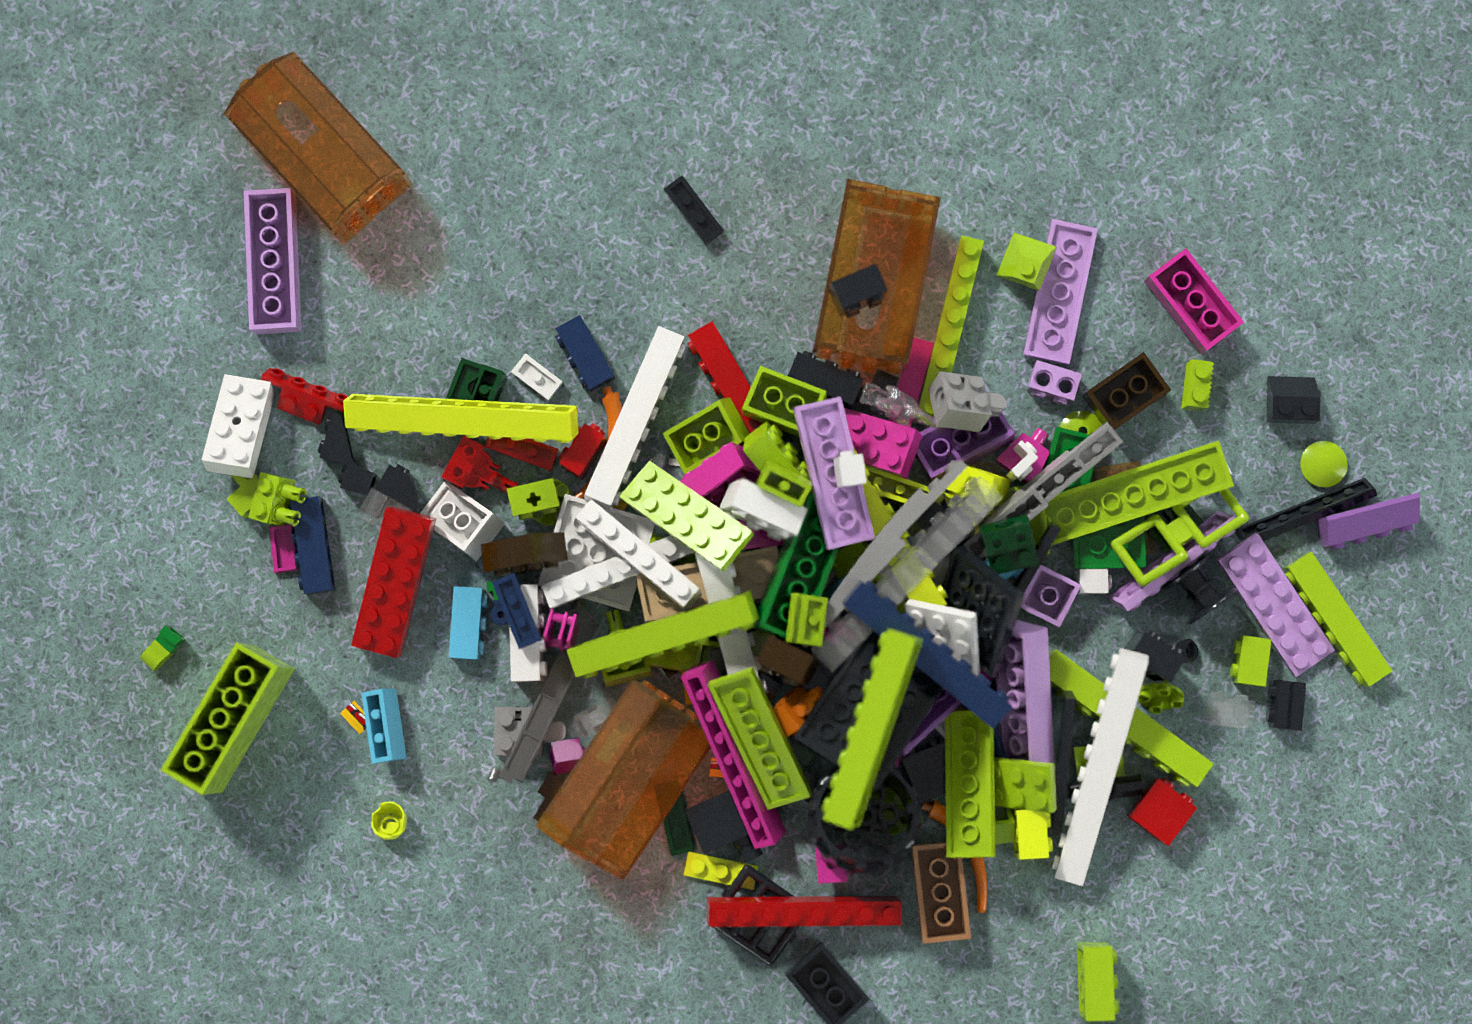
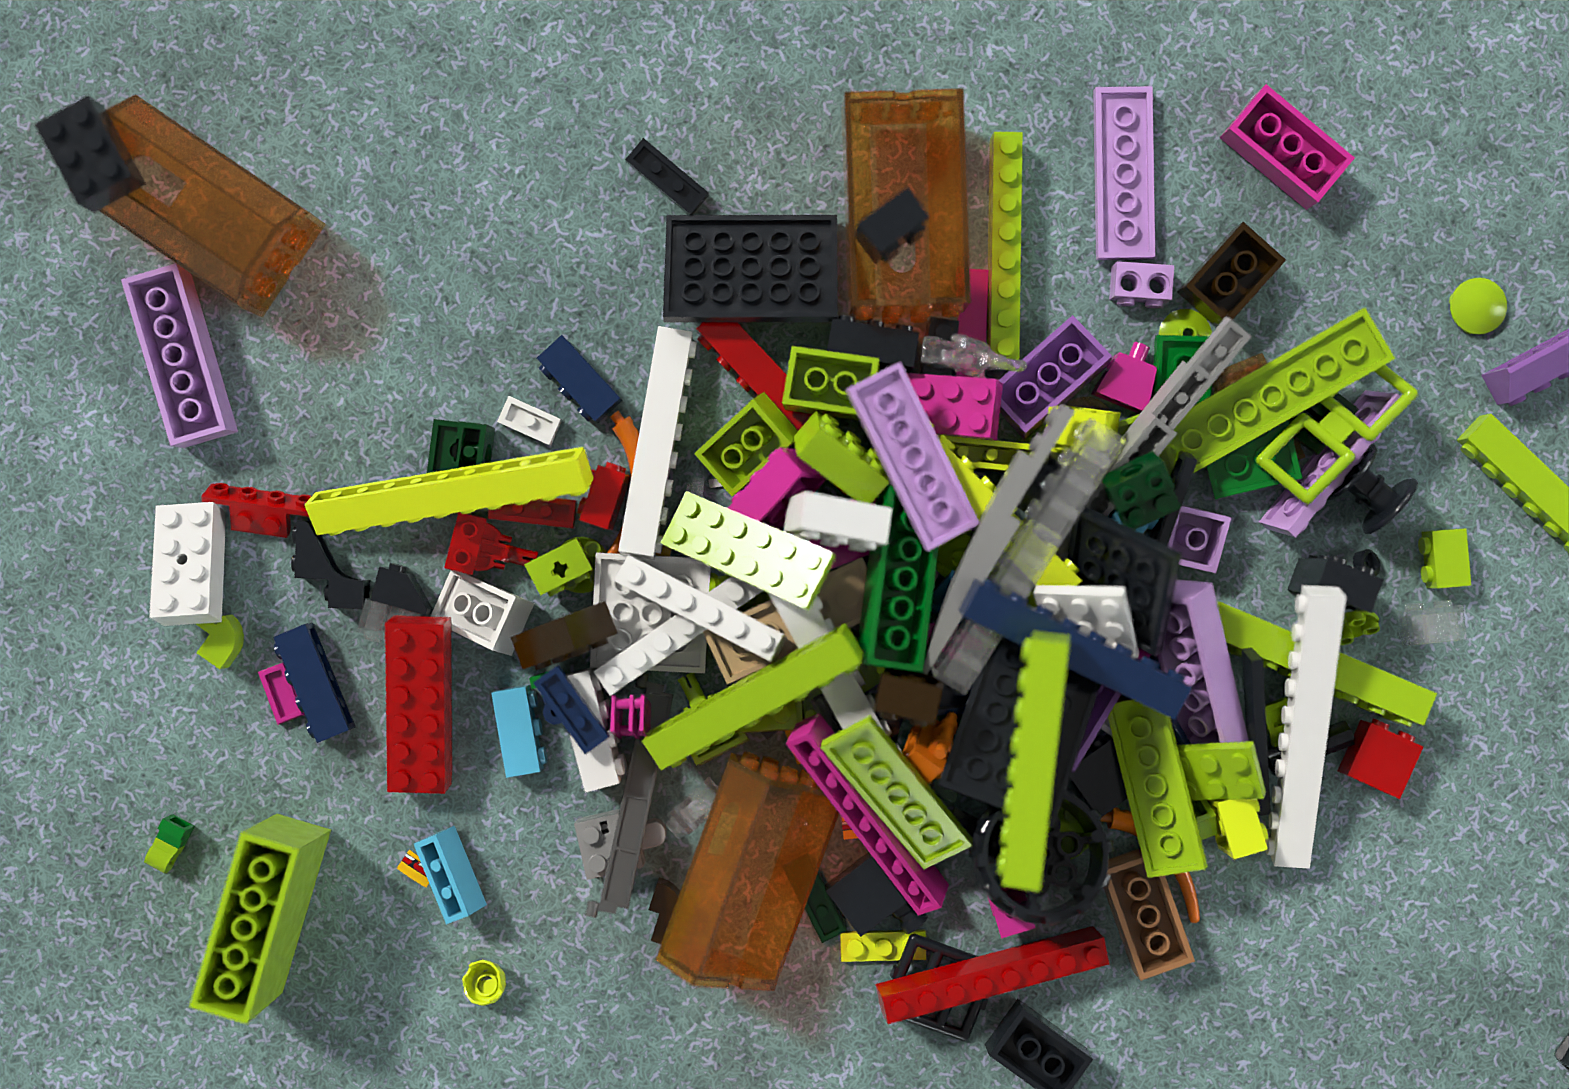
camera: 15 degrees left, 5 degrees up
(253, 92) = (90, 154): none -> black brick
(273, 499) = (252, 640): lime brick -> none
(565, 755) = (672, 858): brick -> none
(743, 297) = (750, 268): none -> black plate
(784, 483) = (857, 485): lime brick -> none
(806, 619) = (921, 642): lime plate -> none
(849, 469) = (932, 449): white brick -> none
(963, 402) = (1044, 332): light grey brick -> none
(1023, 468) = (1134, 392): white bracket -> none
(1026, 261) = (1076, 146): lime slope -> none
(1093, 581) = (1241, 508): white brick -> none
(1097, 981) = (1350, 974): lime brick -> none
(1197, 385) = (1311, 247): lime brick -> none
(1275, 604) = (1460, 485): lavender plate -> none
(1286, 705) = (1497, 600): black brick -> none
(1292, 400) = (1427, 238): black slope -> none
(1309, 510) = (1475, 366): black tile -> none

